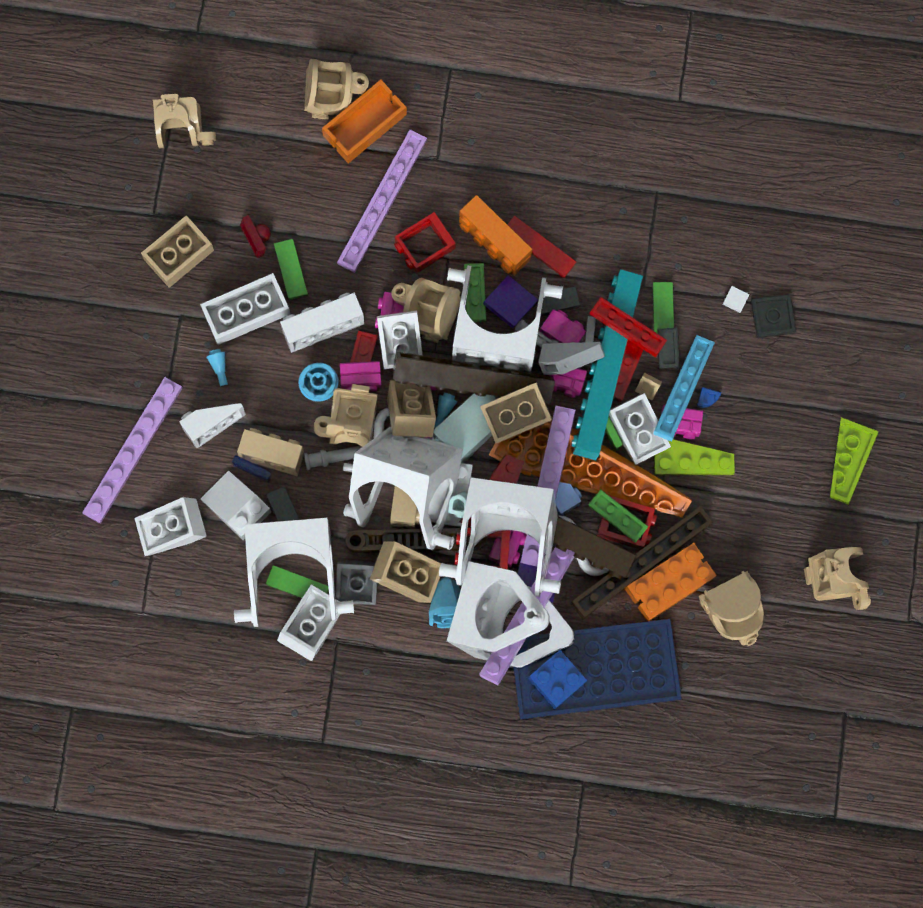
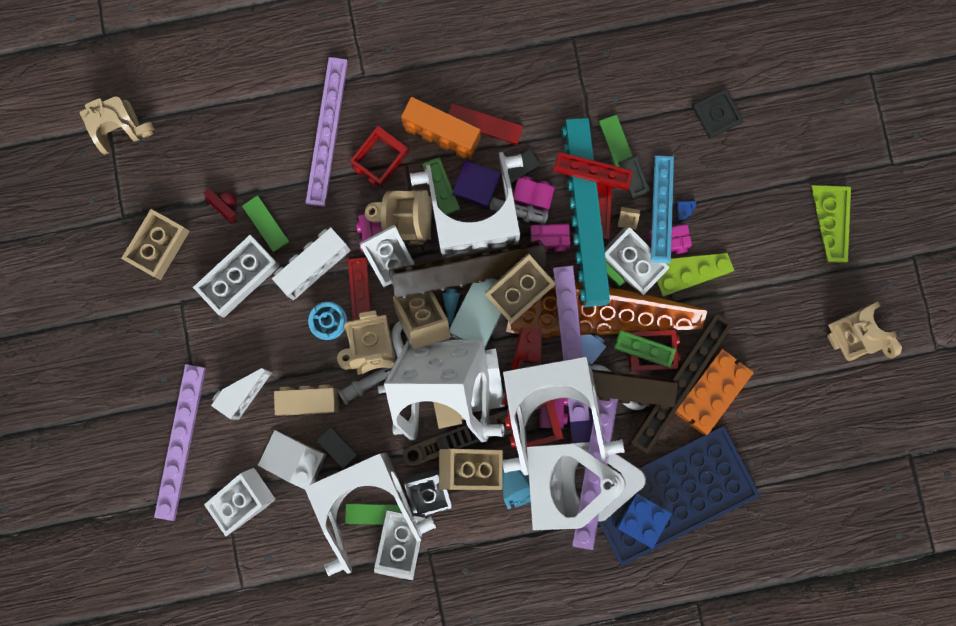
camera: 10 degrees left, 5 degrees up
(217, 361) = (228, 332): medium azure cone -> none
(251, 469) = (295, 421): clear blue tile -> none
(331, 87) = (243, 43): tan animal -> none
(361, 374) = (364, 300): dark pink brick -> none
(364, 121) = (284, 63): orange piece -> none
(457, 504) = (496, 390): light aqua plate -> none
(565, 357) = (546, 219): light grey slope -> none
(590, 328) = (559, 192): light grey tile -> none
(735, 608) = (782, 396): tan animal -> none
(736, 299) = (678, 110): white tile -> none

